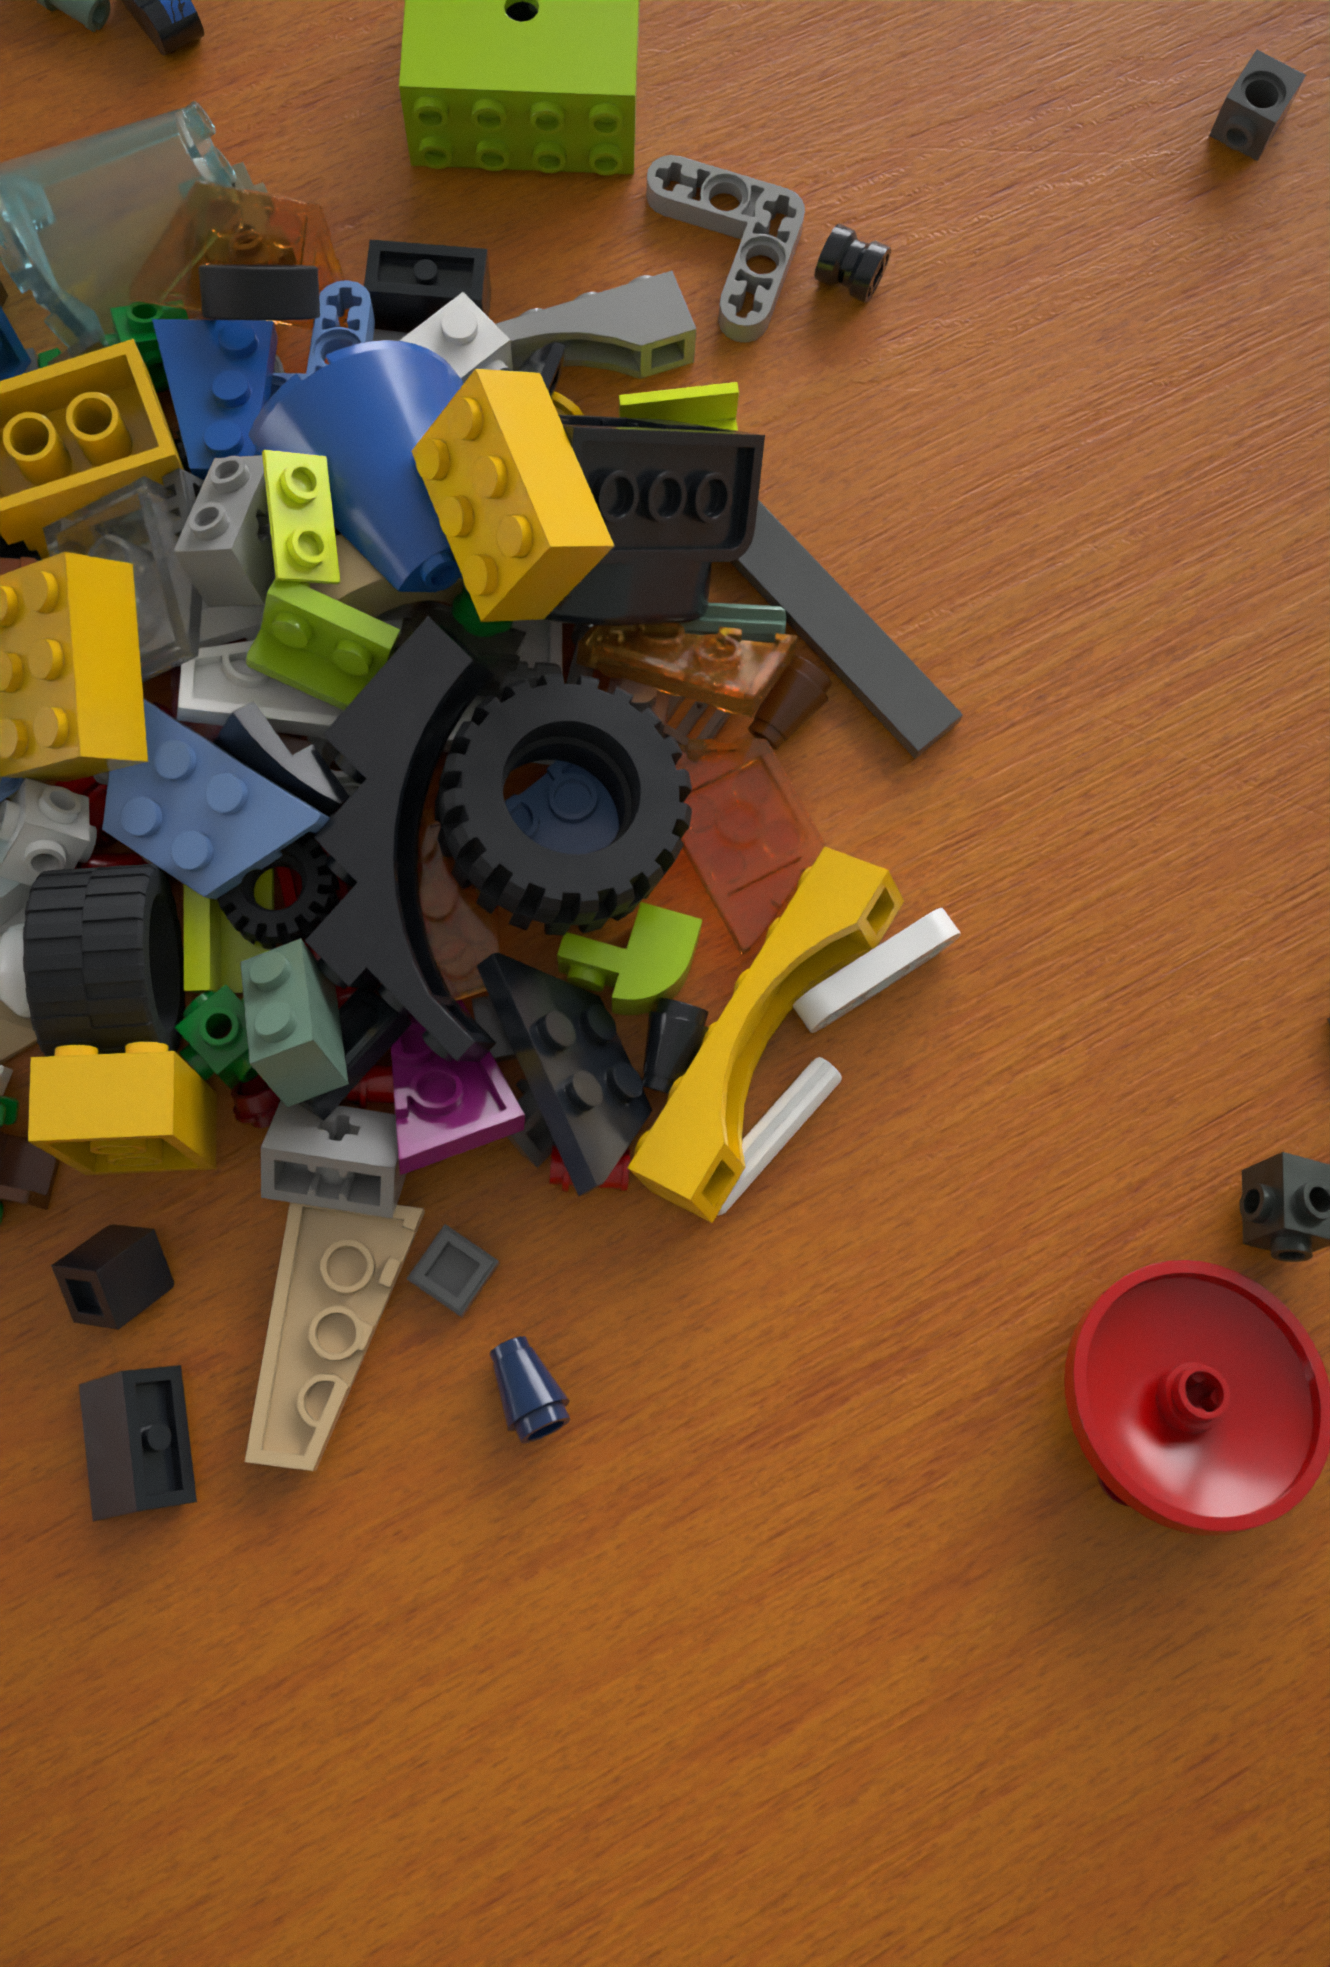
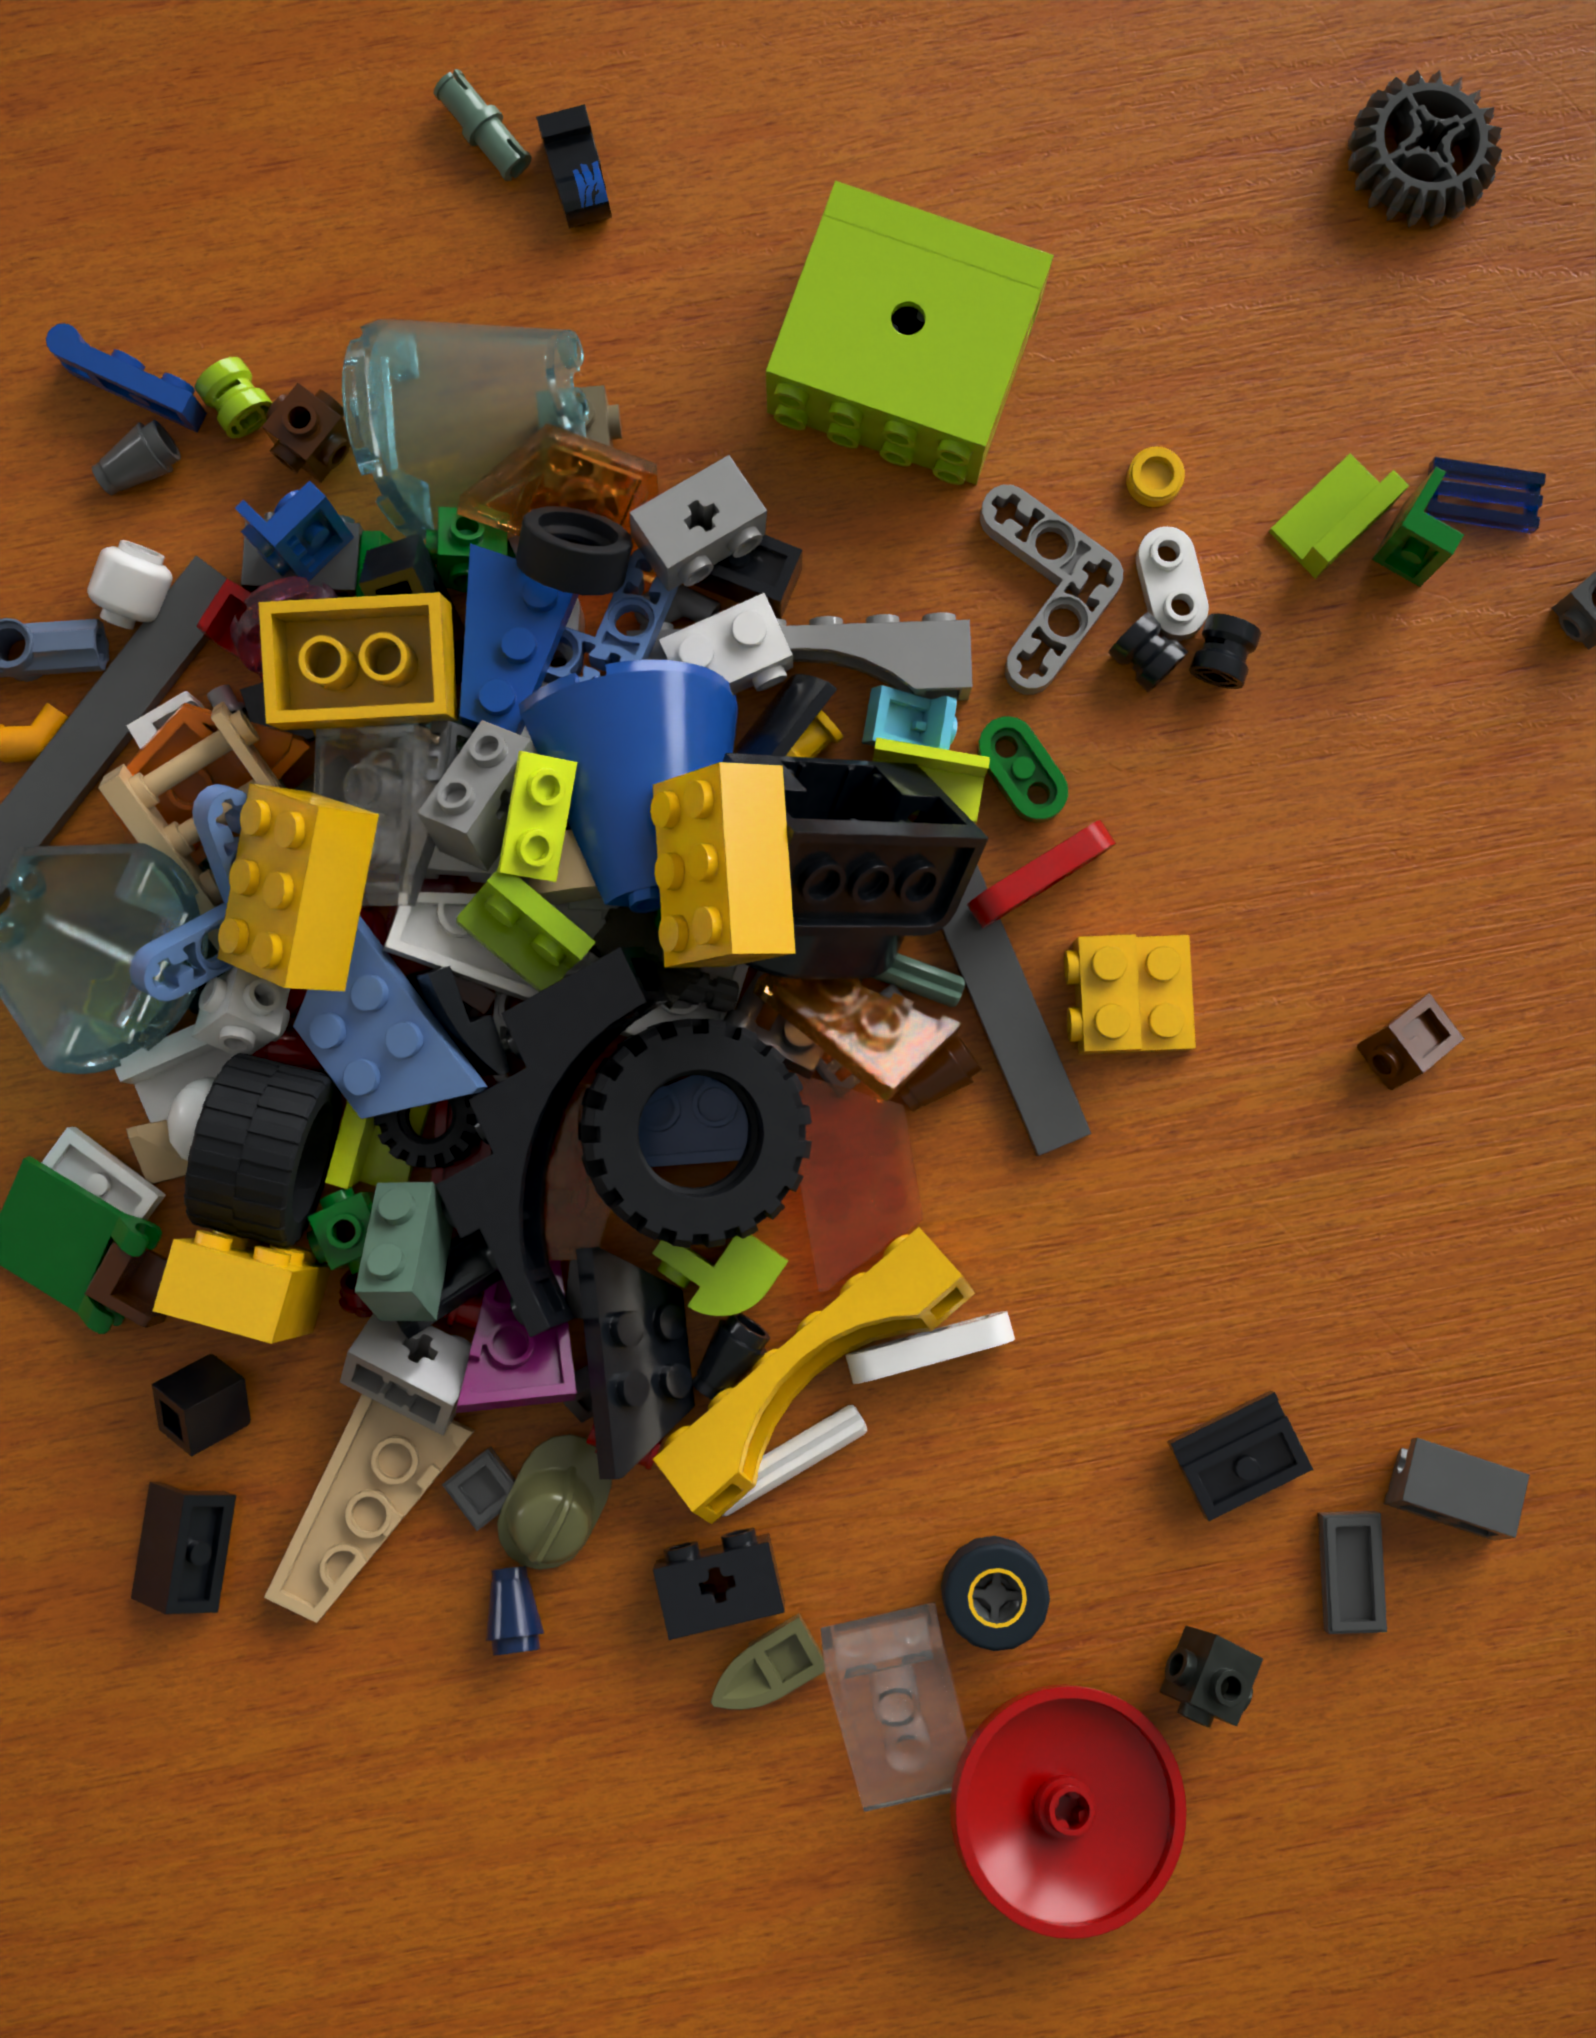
camera: 25 degrees right, 10 degrees up
(377, 240) = (711, 499): none -> light grey brick
(535, 1261) = (553, 1503): none -> olive piece
(630, 375) = (910, 718): none -> medium azure bracket
(775, 400) = (1025, 769): none -> green plate
(781, 1279) = (695, 1607): none -> black brick
(801, 119) = (1155, 476): none -> yellow tile
(823, 484) = (1041, 874): none -> red beam
(827, 1356) = (770, 1667): none -> olive plate
(850, 198) = (1172, 581): none -> white plate
(925, 253) = (1225, 651): none -> black wheel
(950, 576) = (1130, 994): none -> yellow plate
(977, 1351) = (895, 1704): none -> clear slope
(983, 105) = (1336, 514): none -> lime panel
(1055, 1185) = (999, 1614): none -> black wheel
(1069, 88) = (1417, 541): none -> green panel
(1106, 46) = (1492, 475): none -> clear blue tile
(1230, 980) = (1240, 1455): none -> black plate
(1236, 541) = (1410, 1042): none -> reddish brown bracket

